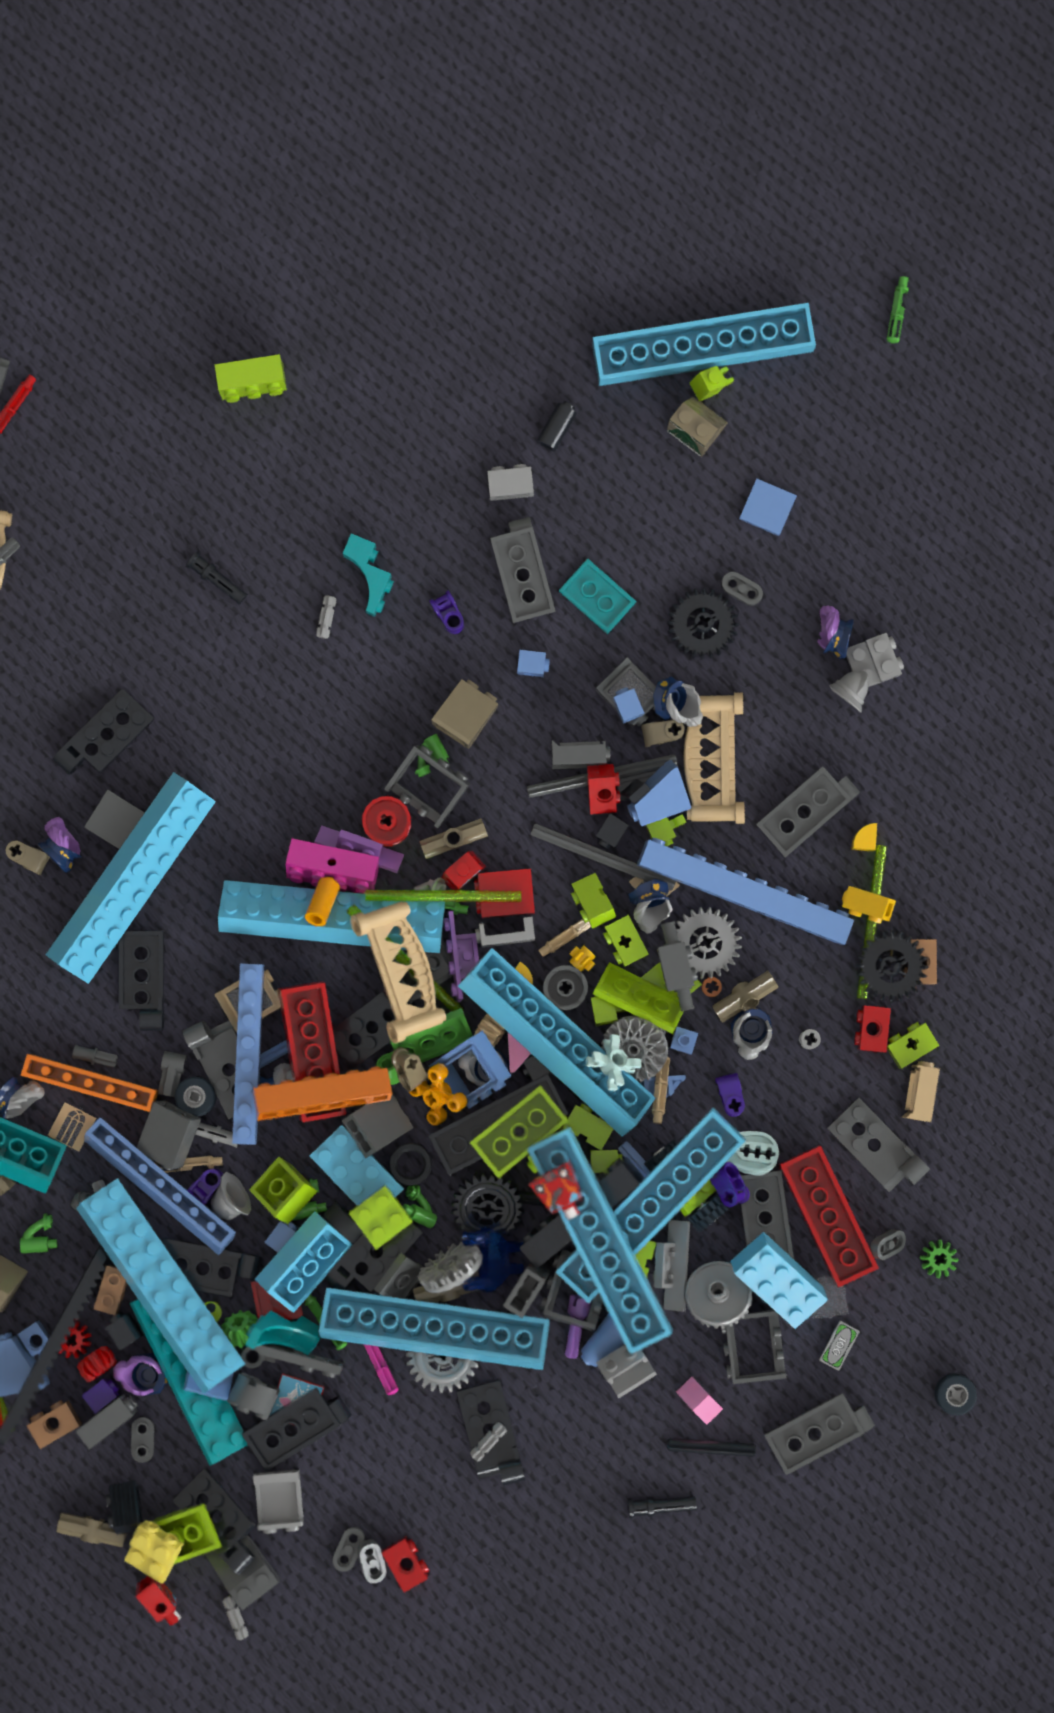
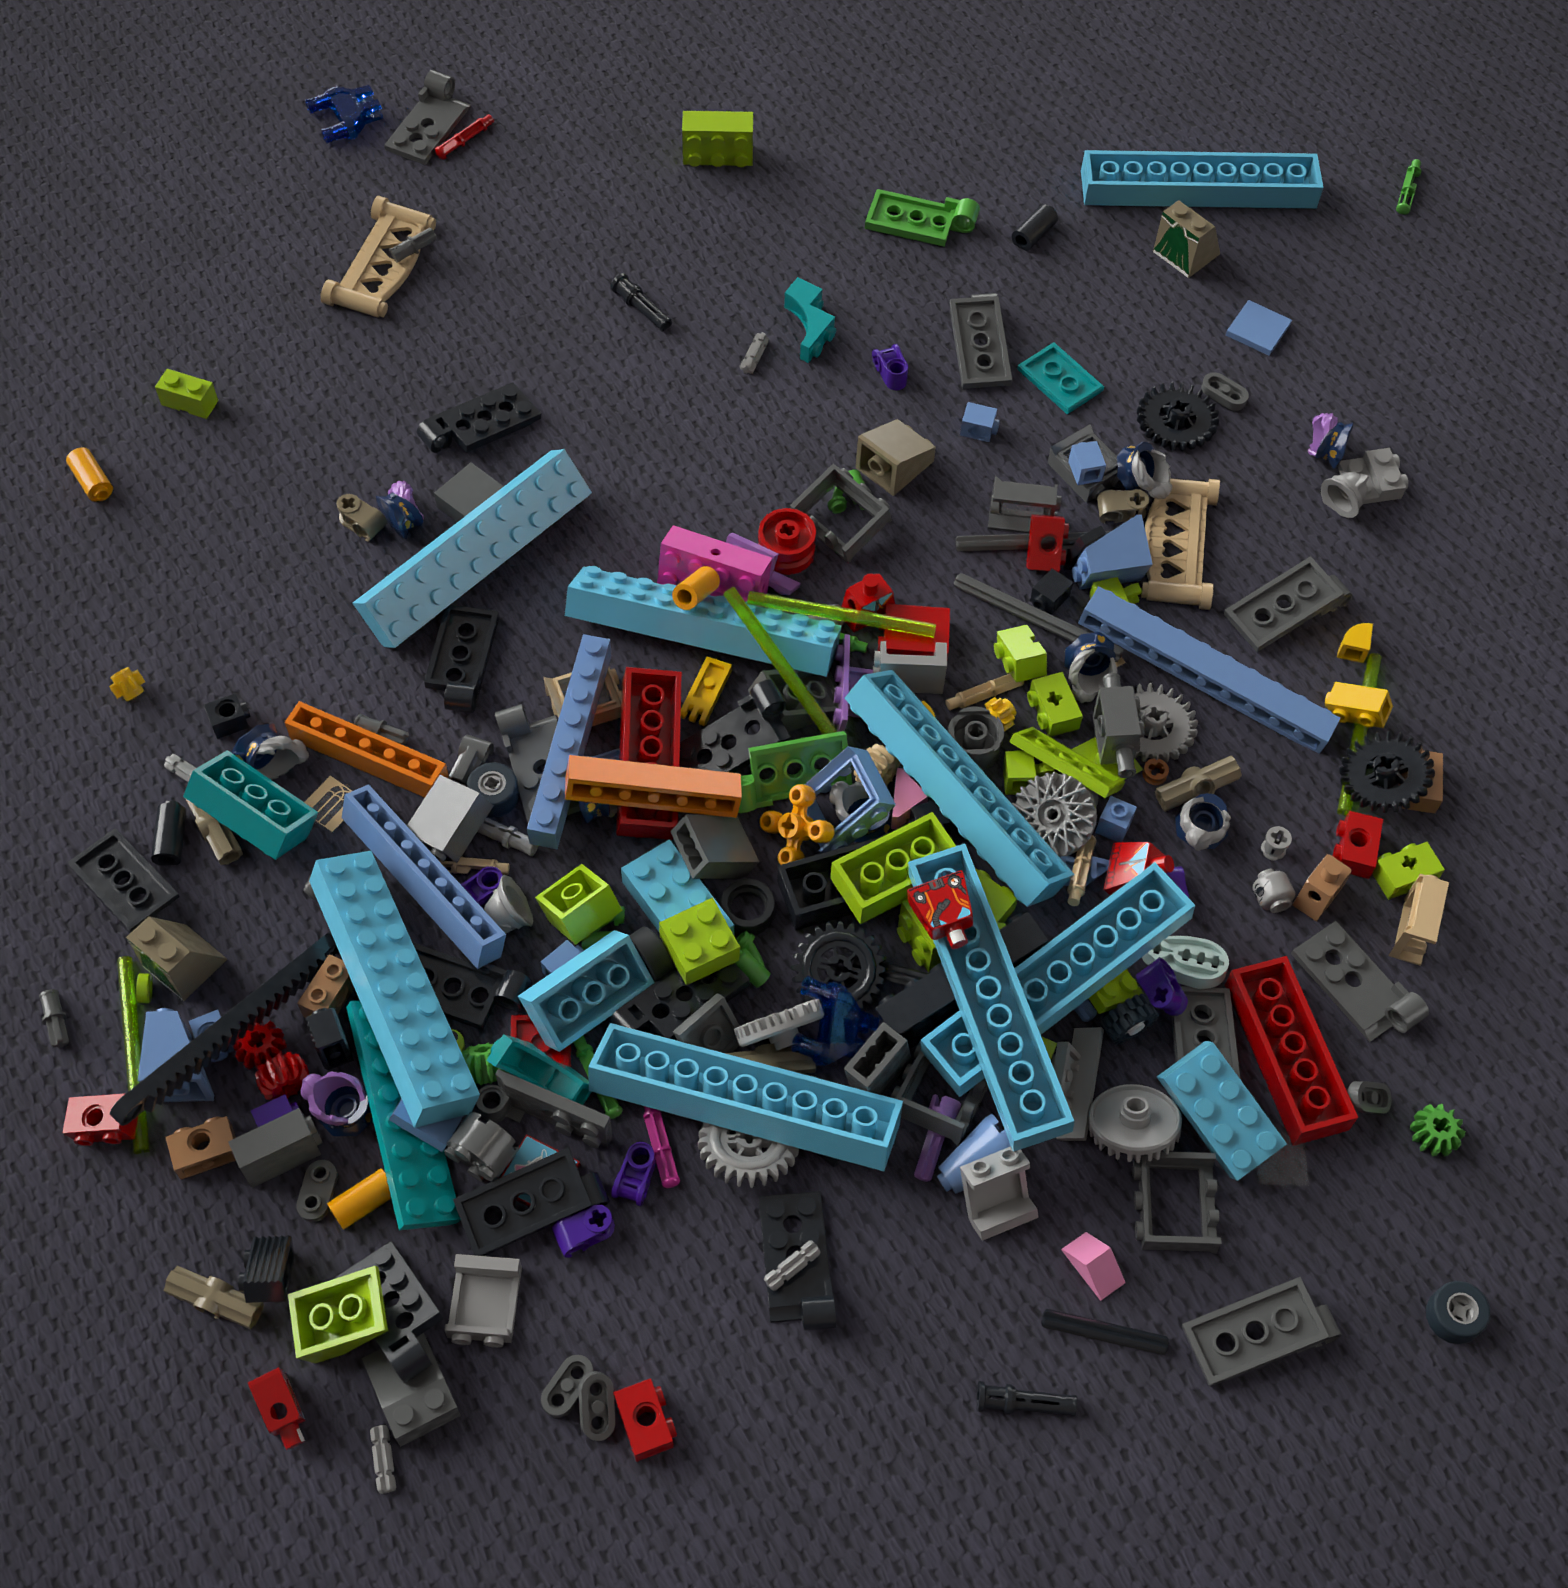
camera: 10 degrees right, 25 degrees down
(32, 1244) = (251, 927): bright green plant -> none
(153, 1551) = (290, 1327): light yellow plate -> none
(175, 1443) = (360, 1199): none -> light orange brick
(336, 1441) = (582, 1231): none -> dark purple piece
(345, 975) = (706, 690): none -> yellow hinge
(366, 1395) = (634, 1179): none -> dark purple piece
(377, 927) = (775, 717): tan piece -> none
(408, 1068) = (768, 789): dark tan piece -> none
(468, 833) = (853, 572): dark tan piece -> none
(482, 425) = (954, 214): none -> bright green hinge
(510, 482) = (978, 265): light grey brick -> none
(613, 1062) = (1027, 812): light aqua pin -> none
(702, 1085) = (1131, 859): none -> red torso
(709, 382) = (1209, 207): lime brick -> none
(810, 1080) = (1273, 890): none -> light grey head
(839, 1345) = (1294, 1223): light grey tile -> none
(846, 1074) = (1325, 880): none -> medium nougat torso

